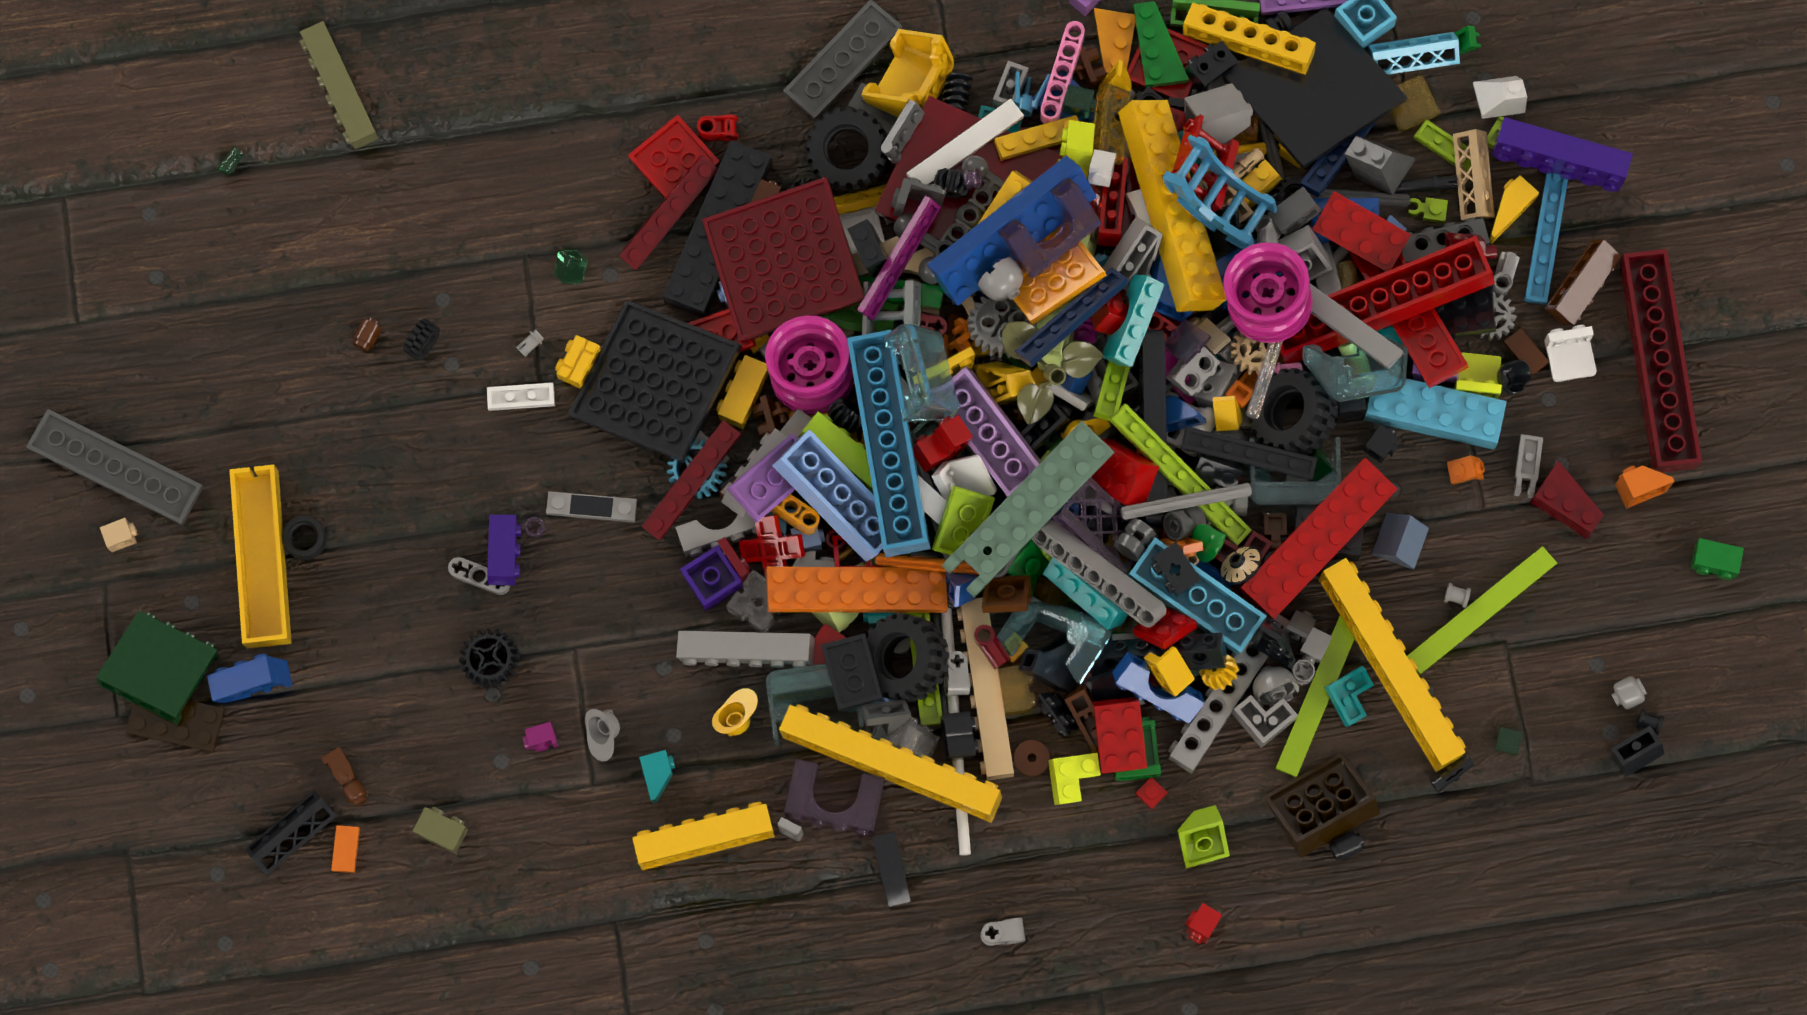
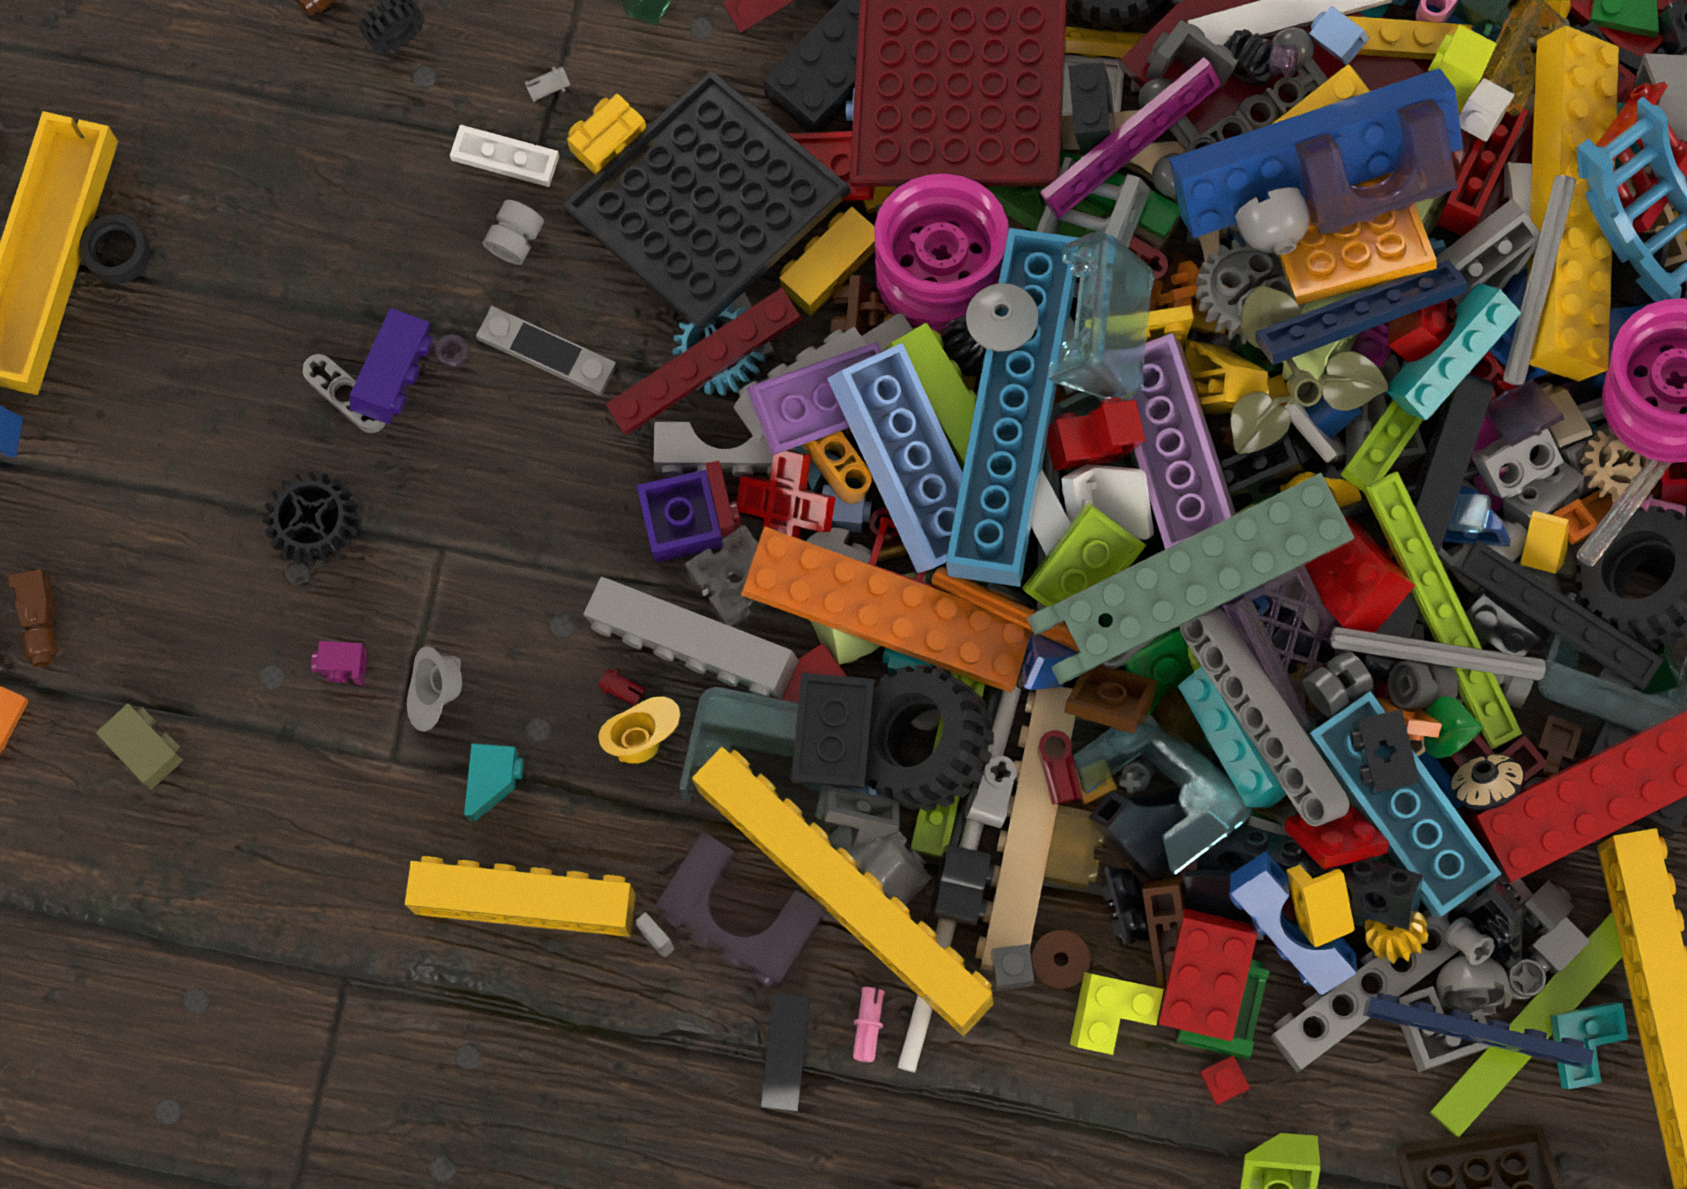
camera: 20 degrees right, 0 degrees up
(545, 440) = (515, 229): none -> light grey wheel
(714, 692) = (621, 687): none -> dark red pin
(862, 403) = (1002, 332): none -> light grey dish
(933, 836) = (868, 1024): none -> bright pink axle
(999, 151) = (1338, 35): none -> light blue brick
(1005, 771) = (1012, 967): none -> dark grey brick
(1037, 635) = (1136, 776): none -> dark grey axle
(1168, 260) = (1539, 280): none -> light grey axle
(1176, 411) = (1470, 513): none -> clear light blue tile
(1260, 660) = (1472, 943): none -> light grey bush
(1275, 711) = (1493, 1034): none -> dark blue plate

